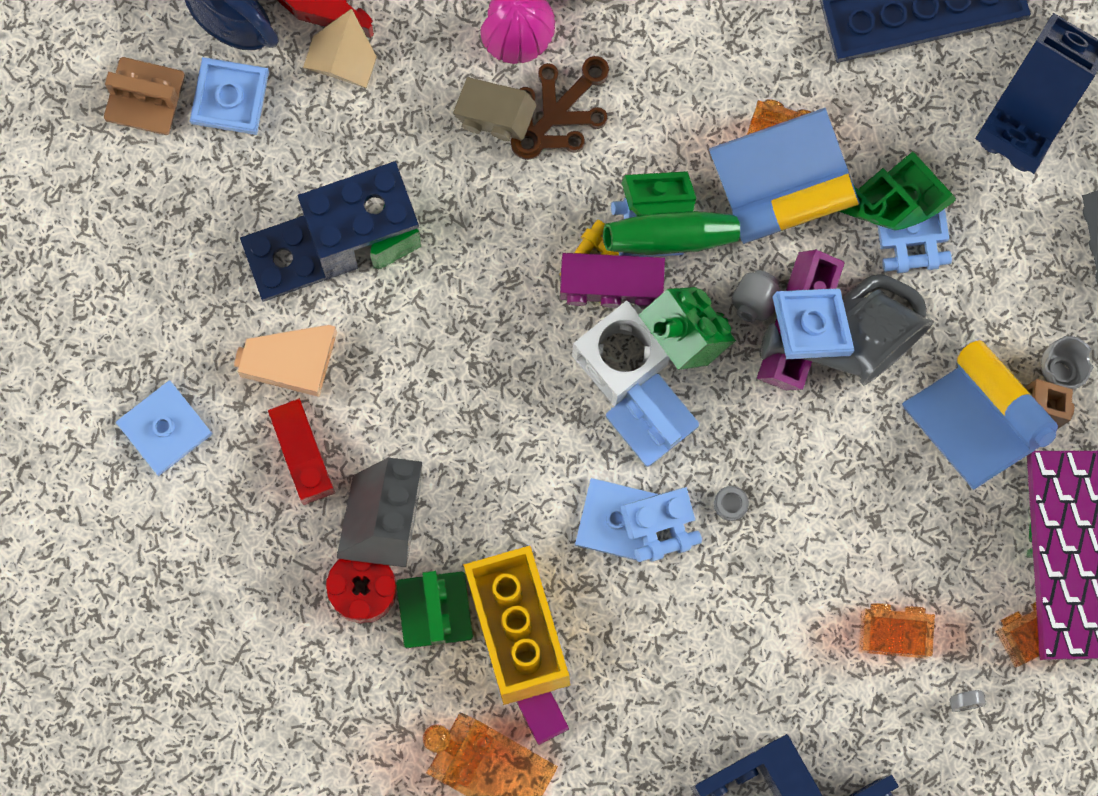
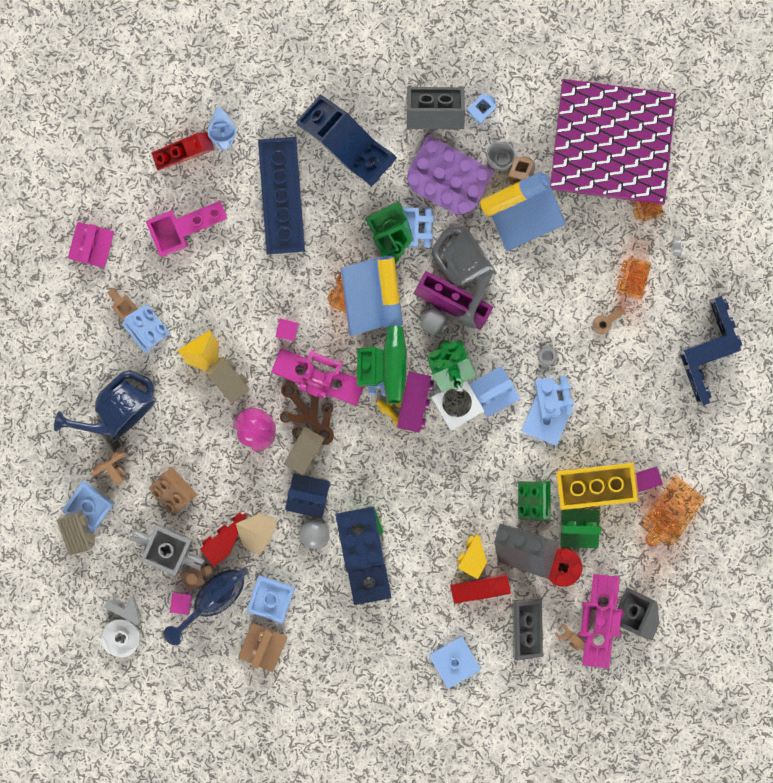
camera: 80 degrees left, 10 degrees up
(231, 634) = (576, 642): none -> medium nougat plate
(240, 543) = (527, 629): none -> dark grey slope
(273, 679) = (606, 622): none -> dark pink piece
(289, 359) = (428, 587): light nougat slope -> none
(295, 737) = (640, 614): none -> dark grey slope
(352, 151) = (314, 534): none -> light grey hair
(353, 430) = (474, 558): none -> yellow slope
(418, 129) = (307, 495): none -> dark blue bracket
(472, 520) = (534, 500): none -> green bracket
(618, 109) = (315, 381): none -> dark pink piece
(698, 51) = (287, 329): none -> dark pink piece
(812, 600) = (608, 320): none -> medium nougat bar
(813, 323) = (460, 295): light blue plate -> none
(1011, 282) = (448, 177): none -> medium lavender plate

